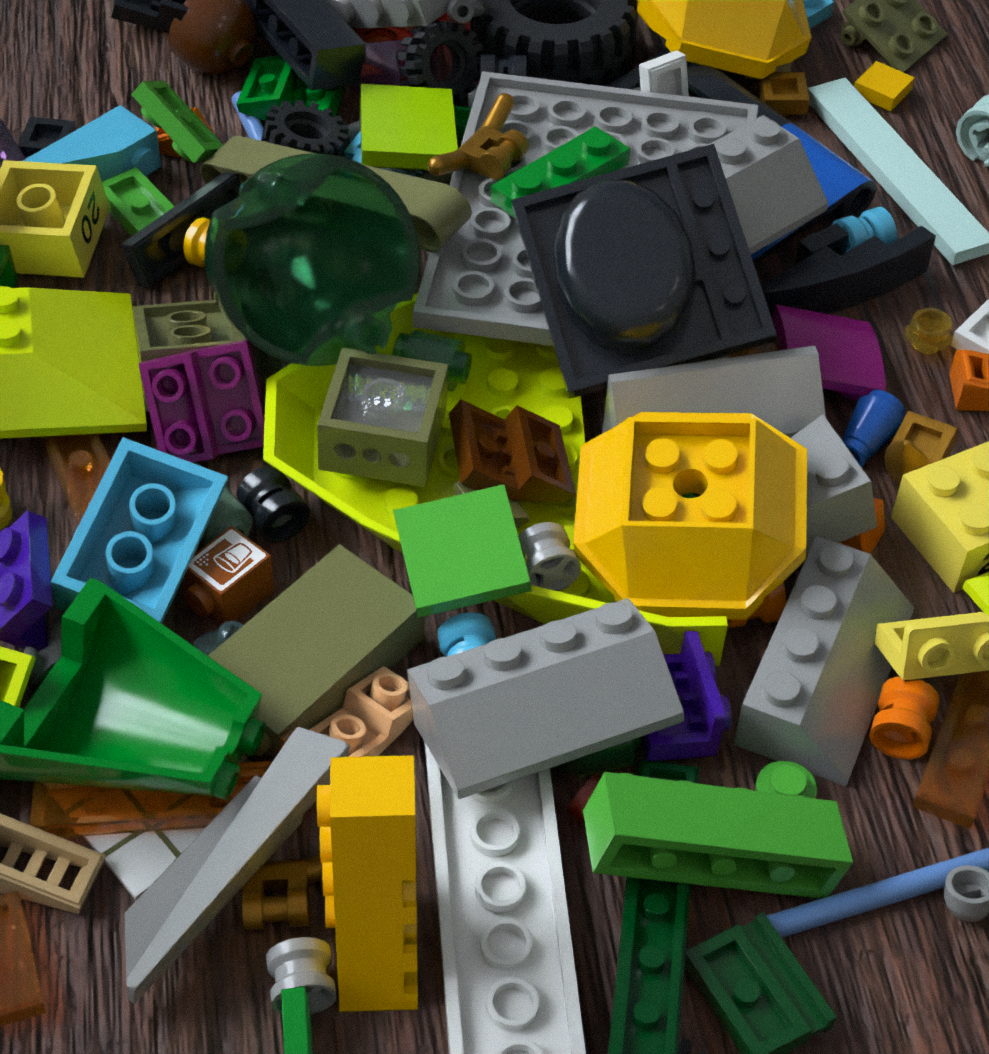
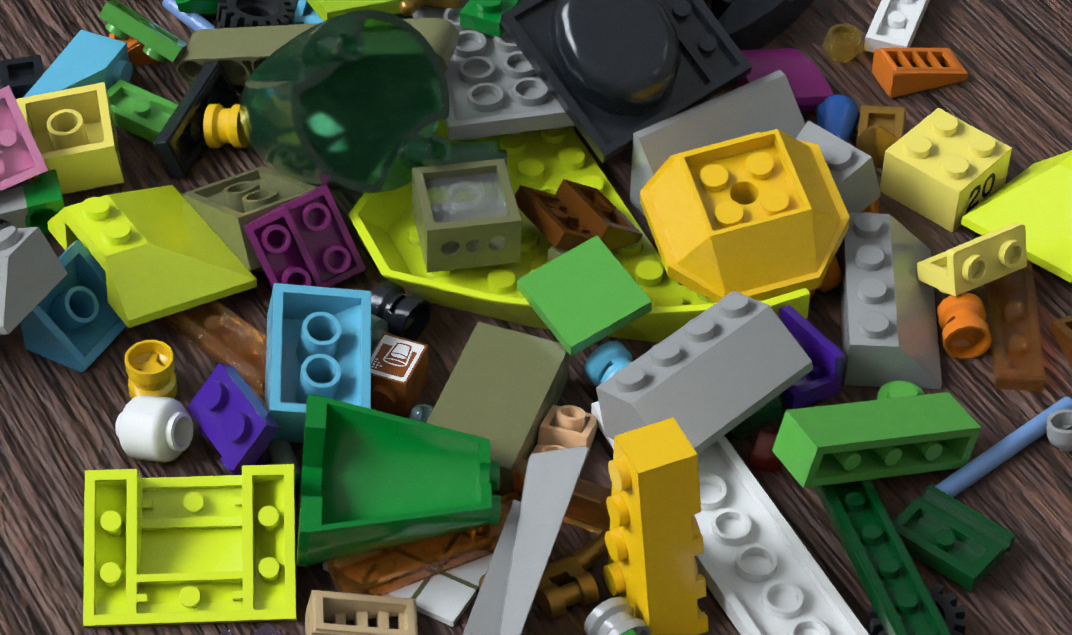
camera: 20 degrees left, 5 degrees down
(549, 557) = (658, 284): light grey wheel -> none

